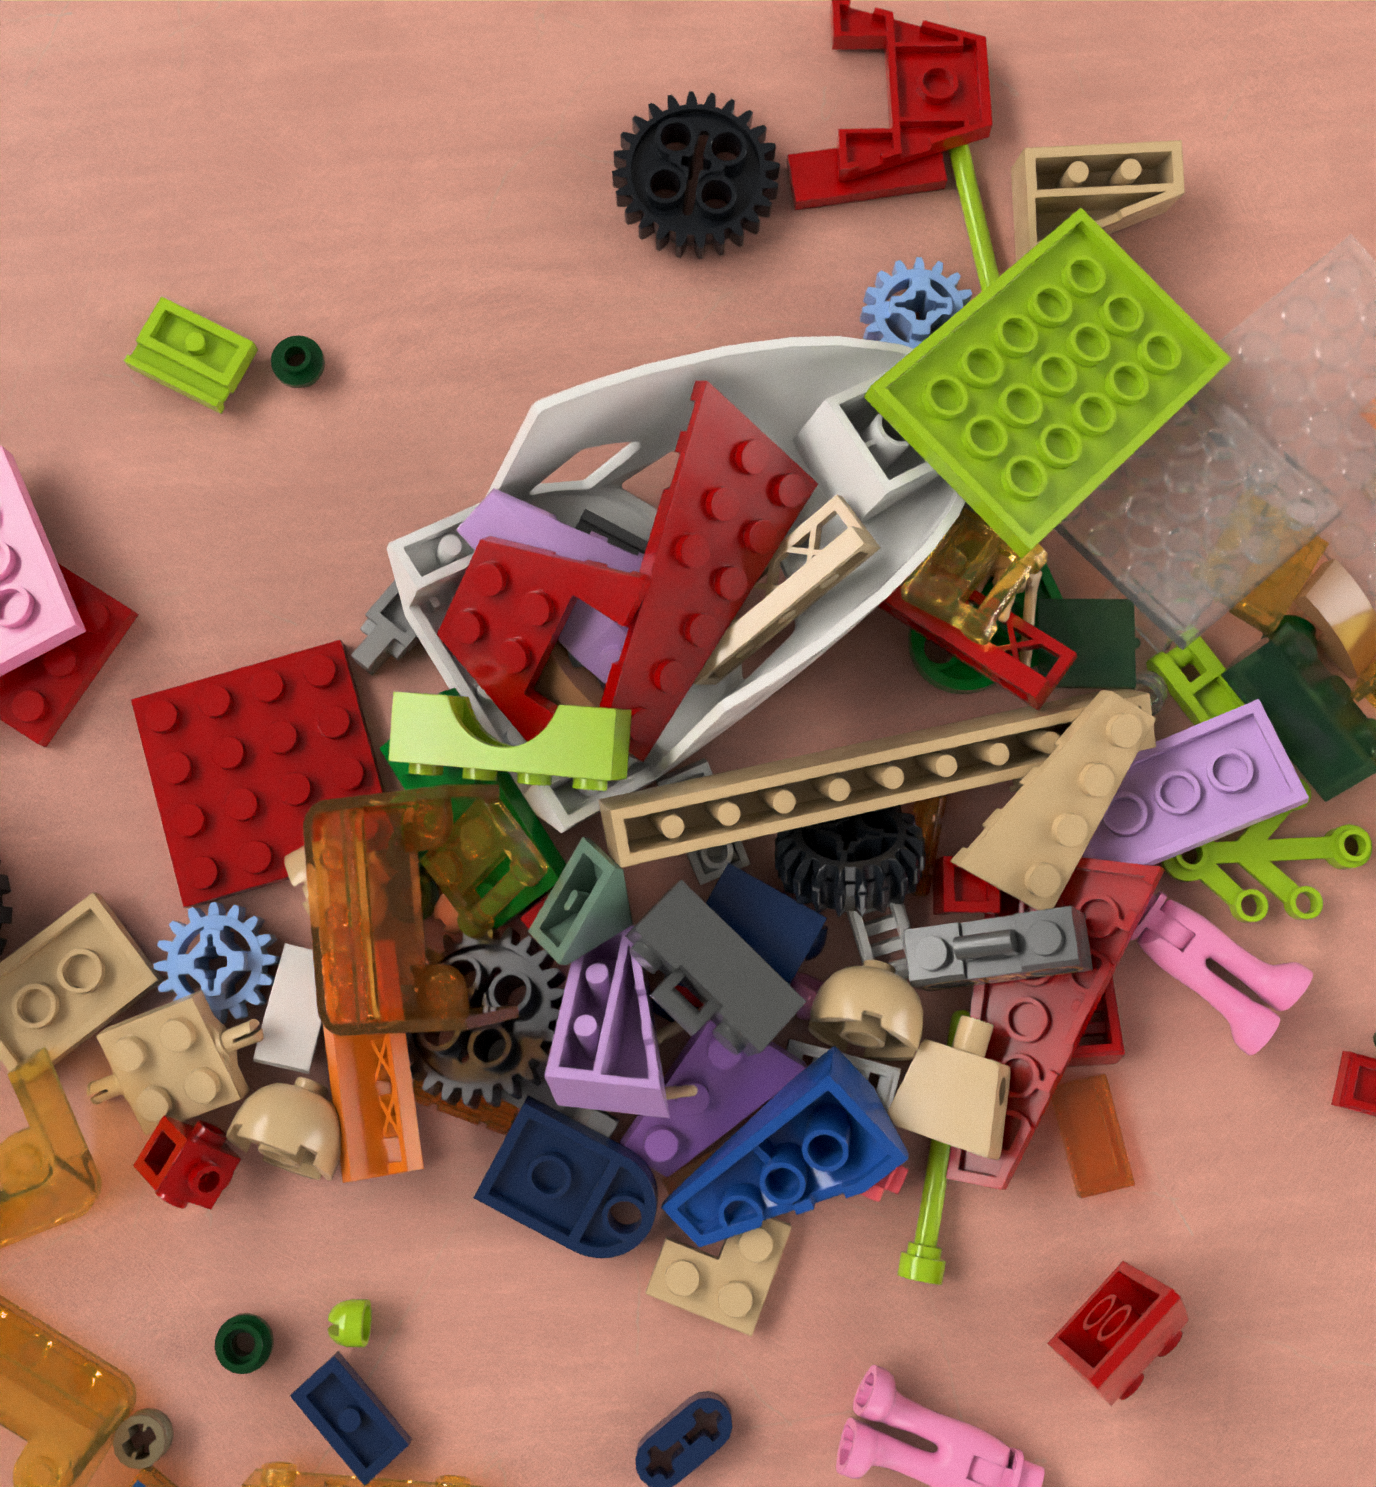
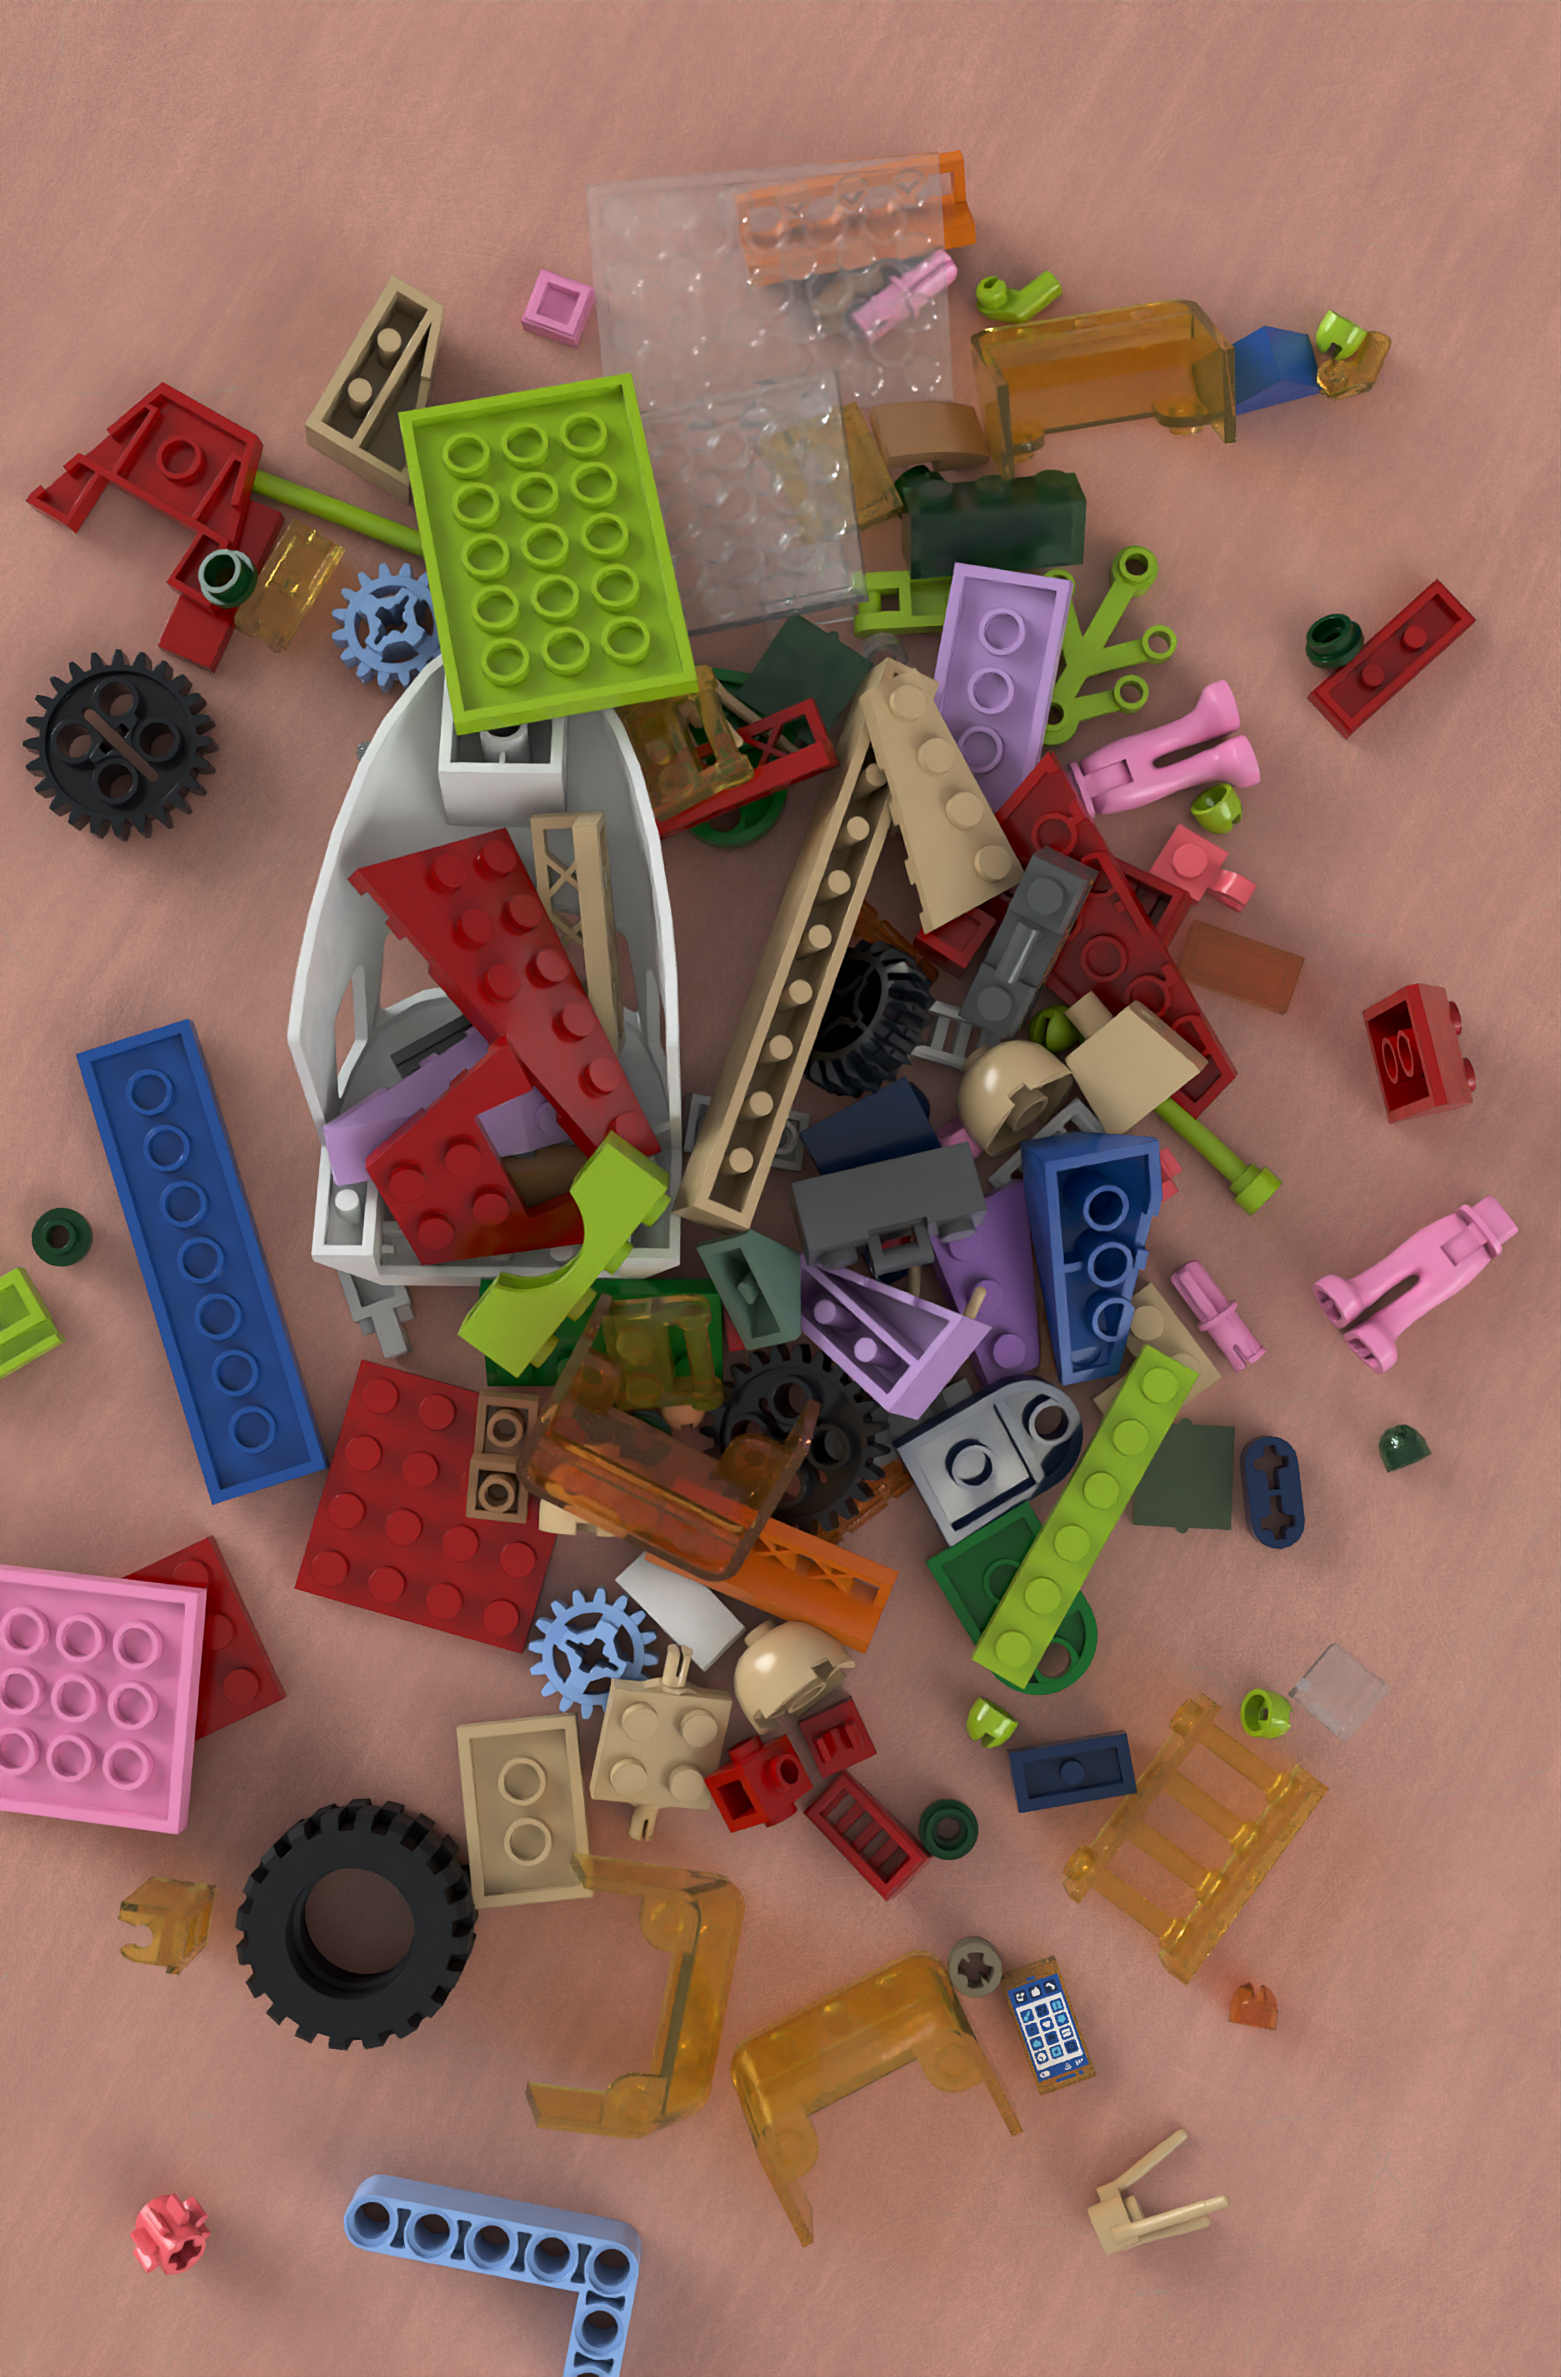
camera: 55 degrees left, 5 degrees up
(174, 1296) = (869, 1868): none -> red slope
(266, 1203) = (837, 1737): none -> red tile
(341, 476) = (202, 1261): none -> blue plate
(347, 776) = (501, 1432): none -> medium nougat slope
(464, 1282) = (979, 1573): none -> green plate
(564, 1294) = (1084, 1516): none -> lime plate
(651, 1357) = (1188, 1479): none -> clear green piece
(799, 1299) = (1217, 1315): none -> bright pink axle
(871, 167) = (227, 578): none -> dark green plate
(895, 216) = (288, 586): none -> clear yellow hinge
(944, 1022) = (1060, 1032): none -> lime hinge
(1148, 1047) = (1195, 867): none -> coral plate
(1206, 1035) = (1217, 809): none -> lime hinge
(1239, 284) = (558, 308): none -> bright pink tile

